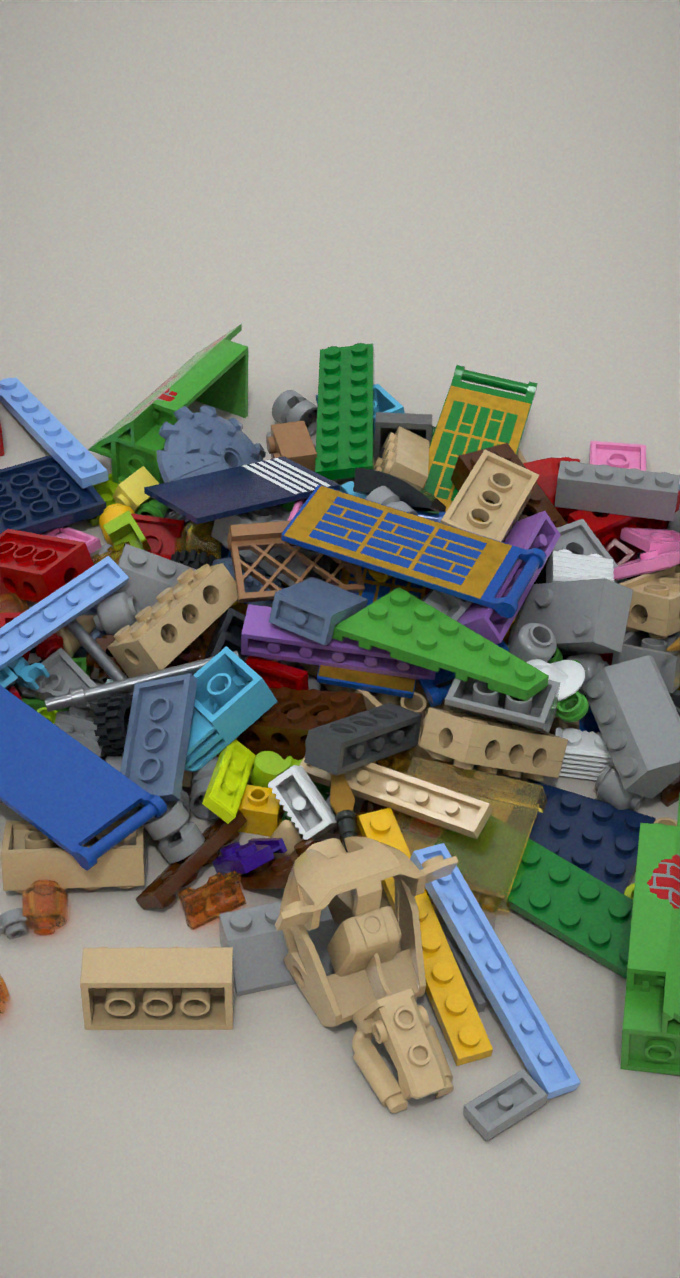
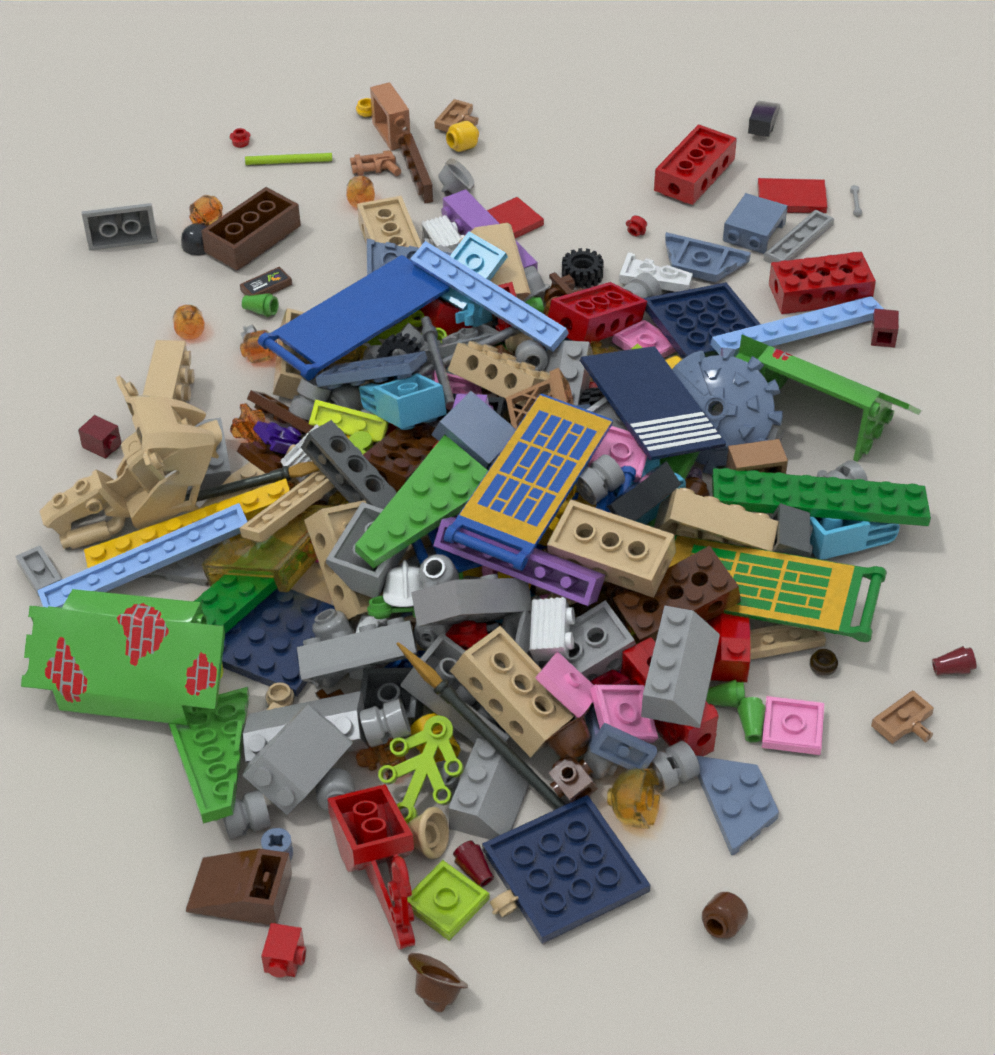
camera: 95 degrees right, 5 degrees up
(48, 377) = (884, 328): none -> dark red brick
(235, 1071) = (100, 436): none -> dark red brick
(520, 365) = (955, 662): none -> dark red cone
(534, 443) = (823, 662): none -> dark brown plate
(578, 775) = (329, 623): none -> light grey head
(594, 400) = (904, 717): none -> medium nougat plate

